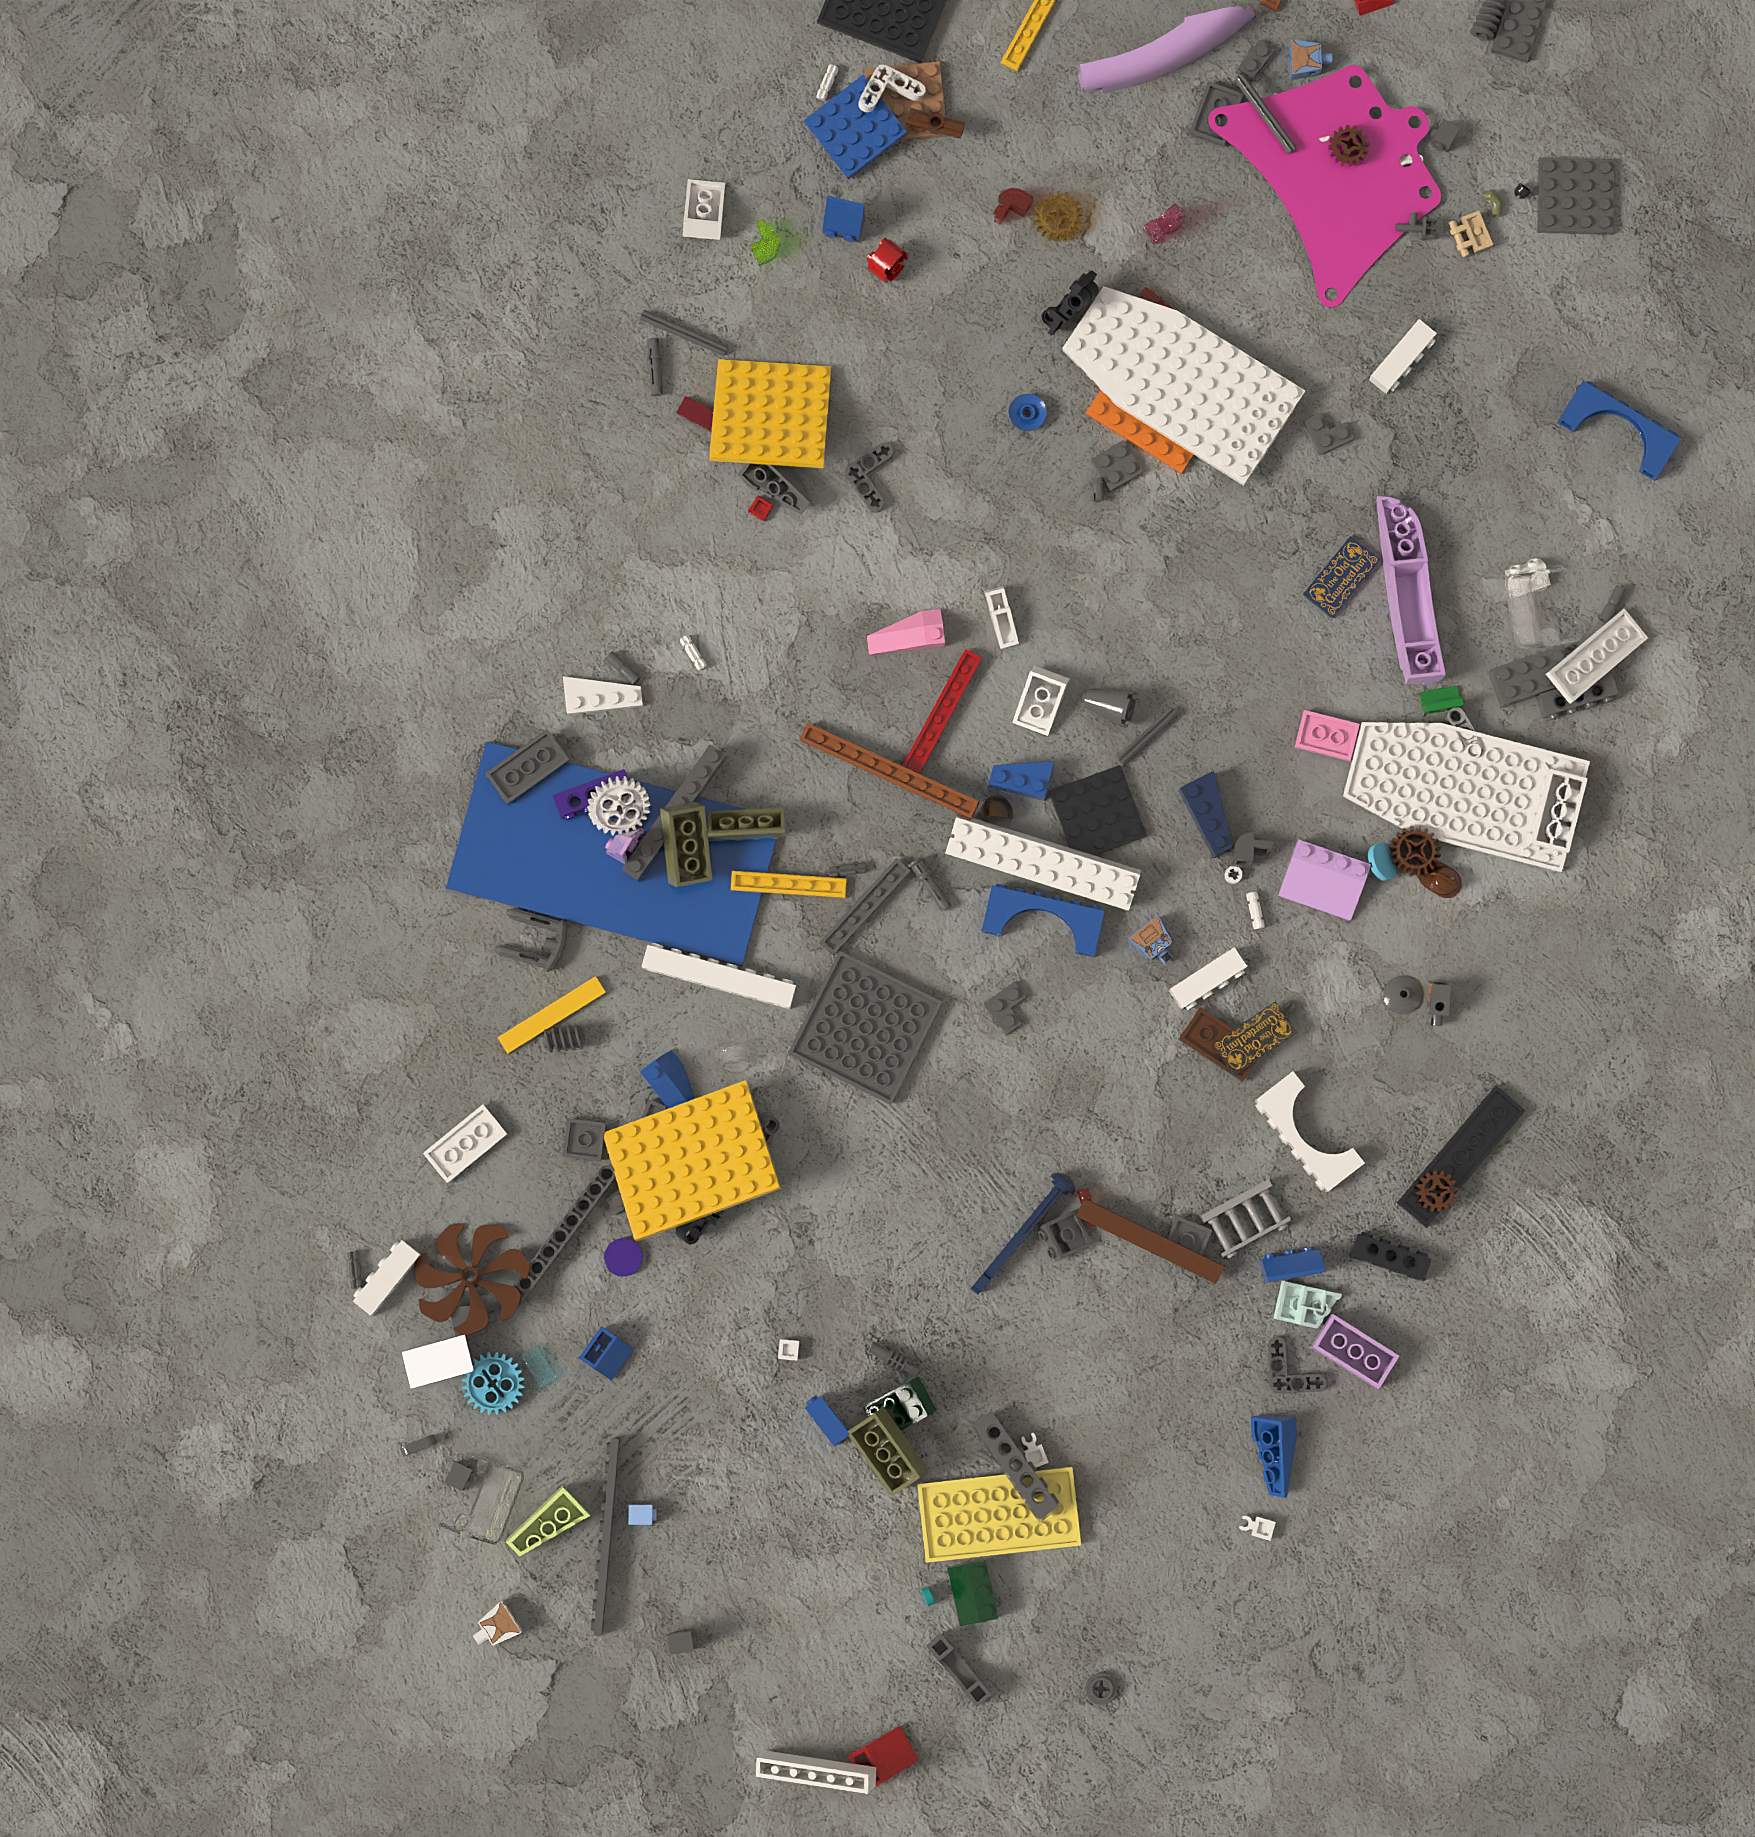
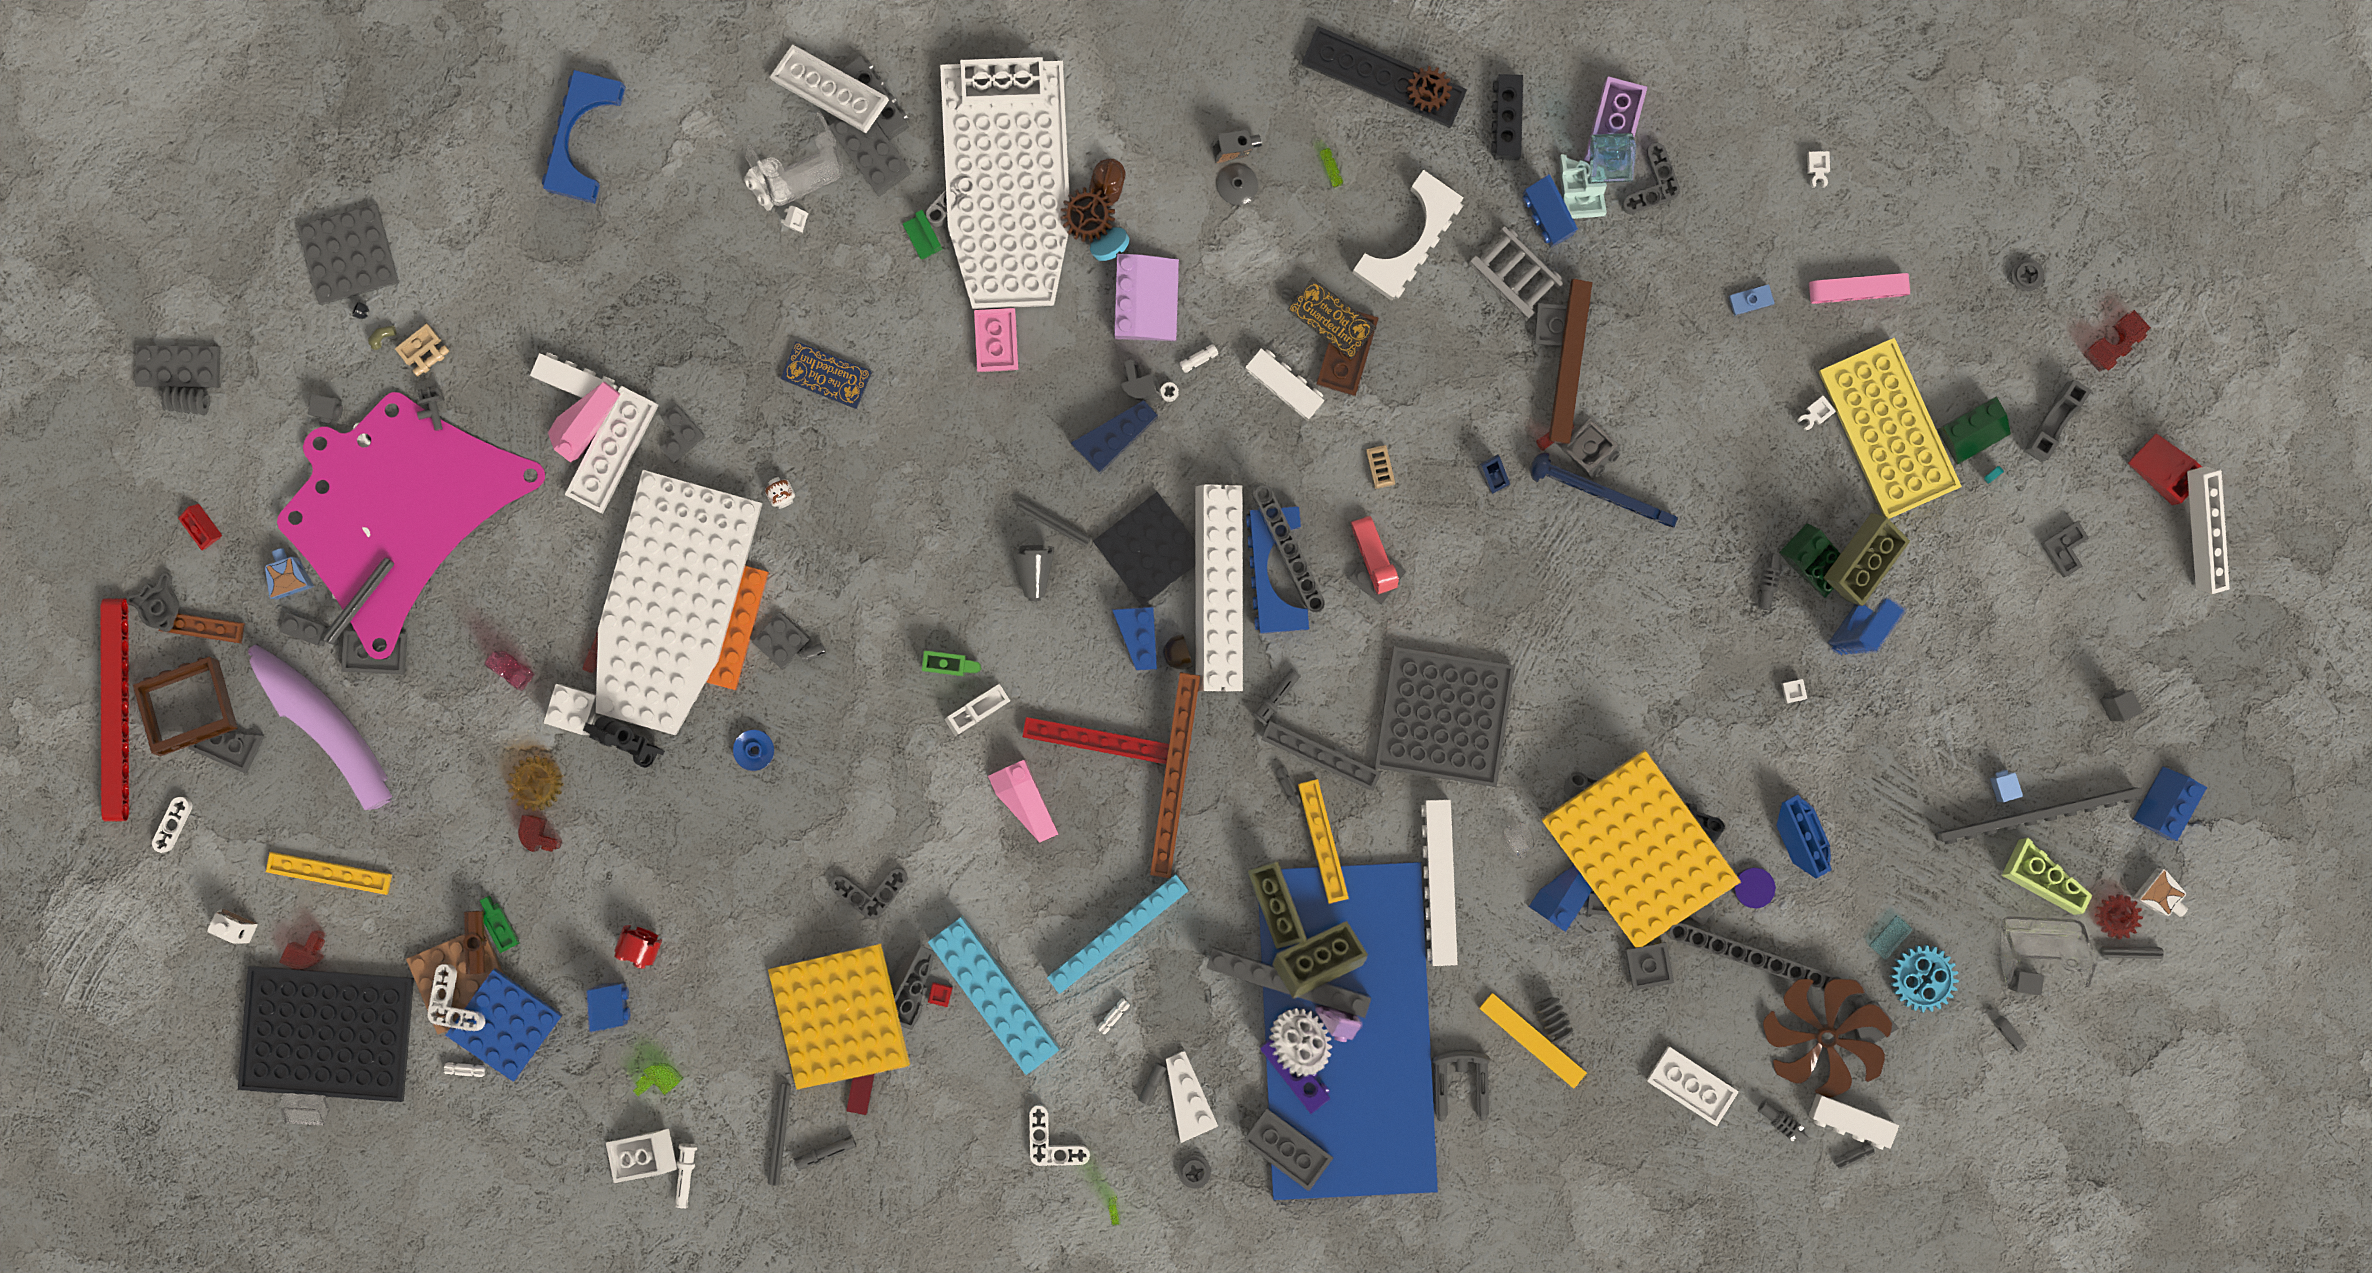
camera: 105 degrees left, 5 degrees up
(405, 1215) = (1784, 1123): none -> dark grey hinge
(437, 1361) = (1922, 1042): white sticker -> none
(454, 1581) = (2132, 952): none -> dark grey axle
(499, 1582) = (2119, 925): none -> clear red gear
(523, 599) = (1114, 1211): none -> clear neon green tile
(527, 675) = (1189, 1179): none -> dark grey gear
(578, 1659) = (2169, 804): none -> blue slope
(593, 561) = (1049, 1150): none -> white beam
(606, 1353) = (1858, 874): blue slope -> none
(655, 1315) = (1804, 837): none -> blue wedge
(683, 244) = (685, 1165): none -> white pin
(745, 554) = (994, 995): none -> medium azure brick
(765, 678) = (1117, 933): none -> medium azure brick
(841, 1636) = (2060, 548): none -> dark grey plate
(943, 148) = (498, 925): none -> green hinge
(1020, 1767) = (2130, 329): none -> clear red arch
(1029, 1008) = (1381, 572): none -> coral beam
(1040, 700) = (1051, 642): white slope -> none
(1040, 1510) = (1877, 387): dark grey brick -> none
(1050, 604) = (949, 664): none -> bright green hinge
(1069, 933) = (1295, 554): none -> dark grey beam
(1069, 1141) = (1494, 473): none -> dark blue slope
(1091, 1040) = (1384, 483): none -> tan slope
(1113, 266) = (571, 709): none -> white brick
(1136, 1528) = (1859, 288): none -> bright pink beam
(1152, 940) = (1263, 452): torso -> none
(1156, 1426) = (1751, 300): none -> medium blue plate
(1248, 504) = (779, 493): none -> white head
(1276, 1446) = (1730, 174): blue wedge -> none
(1323, 1333) = (1612, 157): none -> clear light blue slope
(1332, 370) = (611, 450): none -> white plate
(1341, 143) = (366, 512): reddish brown gear -> none
(1363, 349) = (579, 424): none -> bright pink wedge
(1392, 1083) = (1331, 167): none -> clear neon green axle
(1409, 592) = (822, 299): lavender slope -> none
(1489, 592) = (795, 218): none -> white tile
(1612, 604) = (766, 90): dark grey piece -> none

